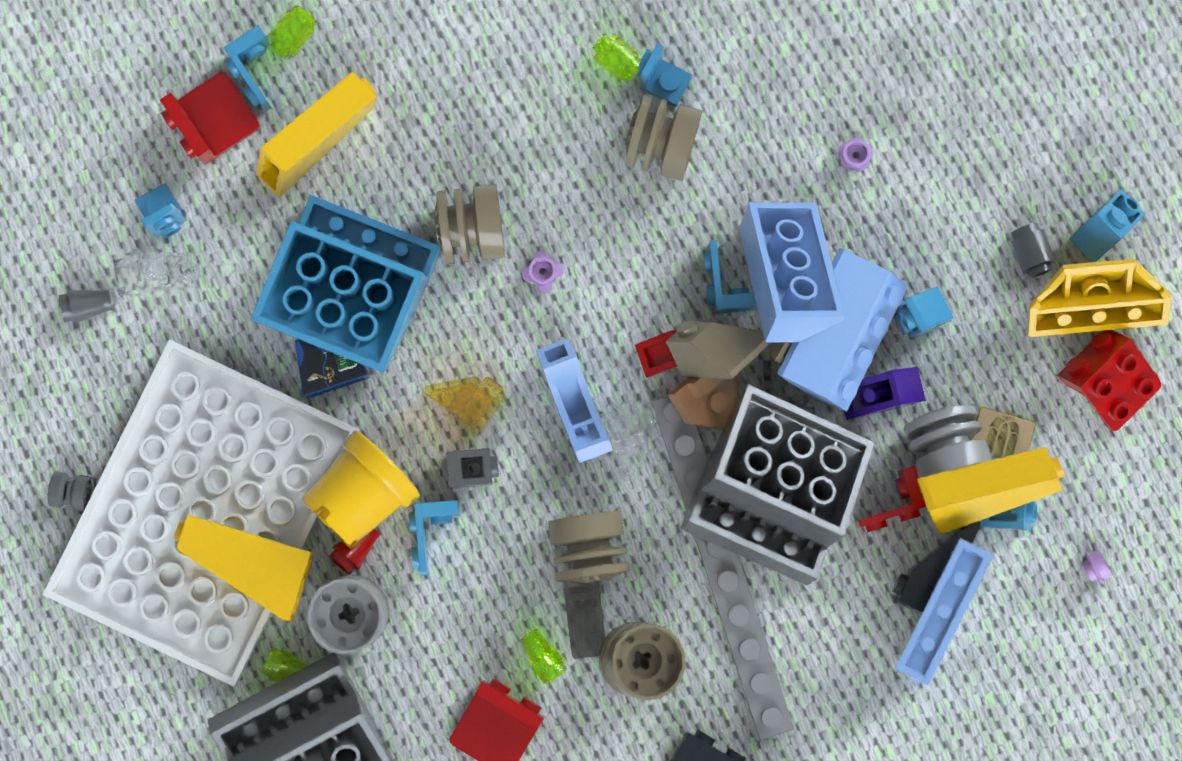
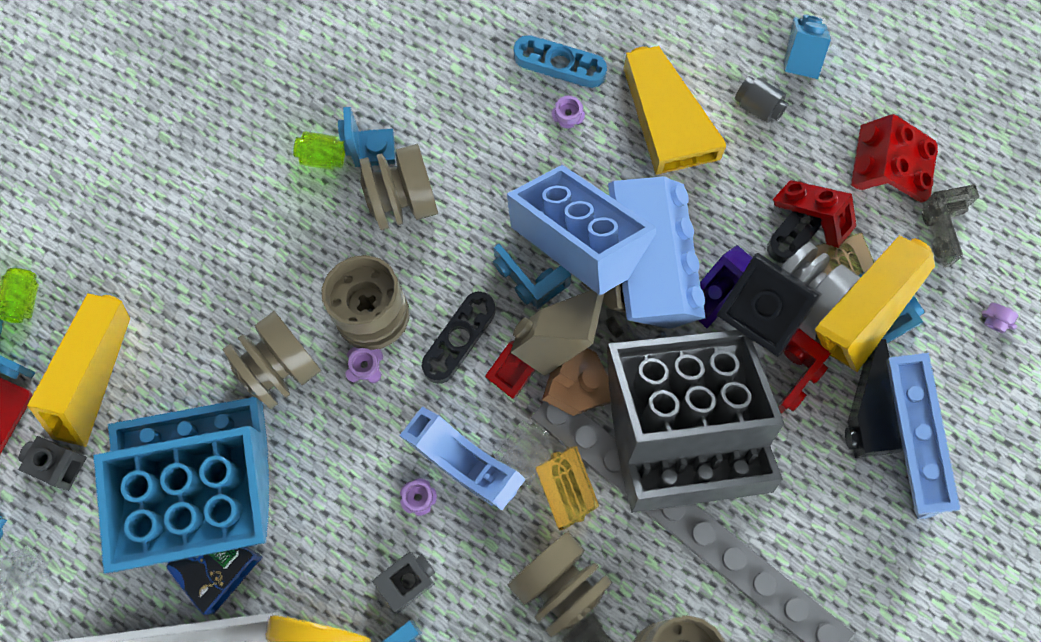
camera: 30 degrees left, 10 degrees down
(252, 207) = (60, 468): none -> dark grey brick
(469, 399) = (364, 518): clear yellow slope -> none
(516, 399) = (408, 493): none -> lavender plate
(580, 205) = (363, 285): none -> dark tan wheel
(643, 476) = (567, 487): none -> clear yellow piece
(662, 295) = (436, 353): none -> black beam
(882, 87) = (555, 49): none -> dark azure beam
(899, 434) = (768, 304): none -> black tile
(922, 313) = (711, 199): dark azure slope -> none
(940, 214) = (669, 114): none -> yellow slope
(974, 378) = (788, 228): none -> black beam
(1015, 378) = (832, 206): none -> red bracket
(1098, 299) = (846, 97): yellow wedge -> none
(1130, 448) = (938, 213): none -> clear smoke bracket

